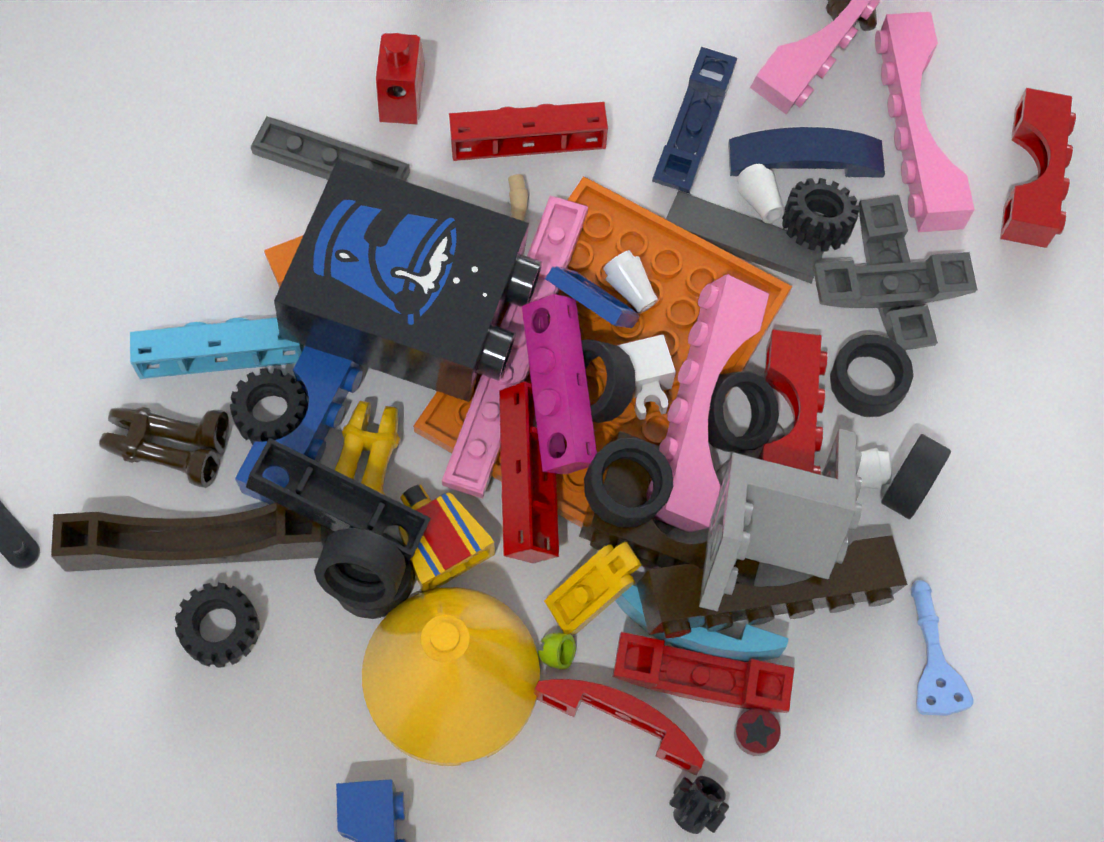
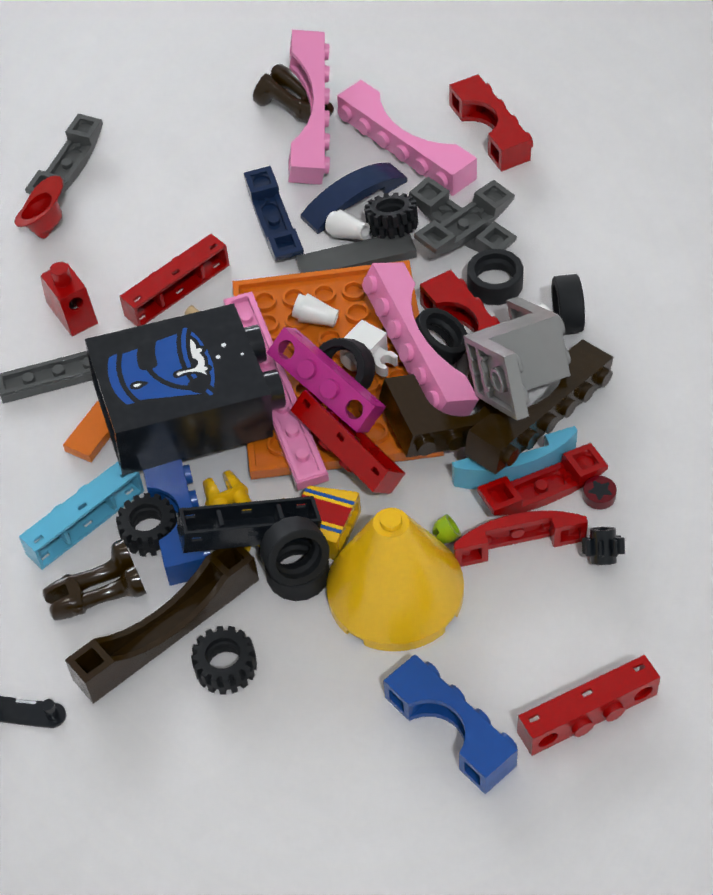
camera: 30 degrees left, 15 degrees down
(593, 297) = (310, 325): blue tile -> none
(593, 587) = (440, 474): yellow hinge -> none
(649, 458) = (415, 378): black tyre -> none
(936, 666) = (665, 394): light blue piece -> none

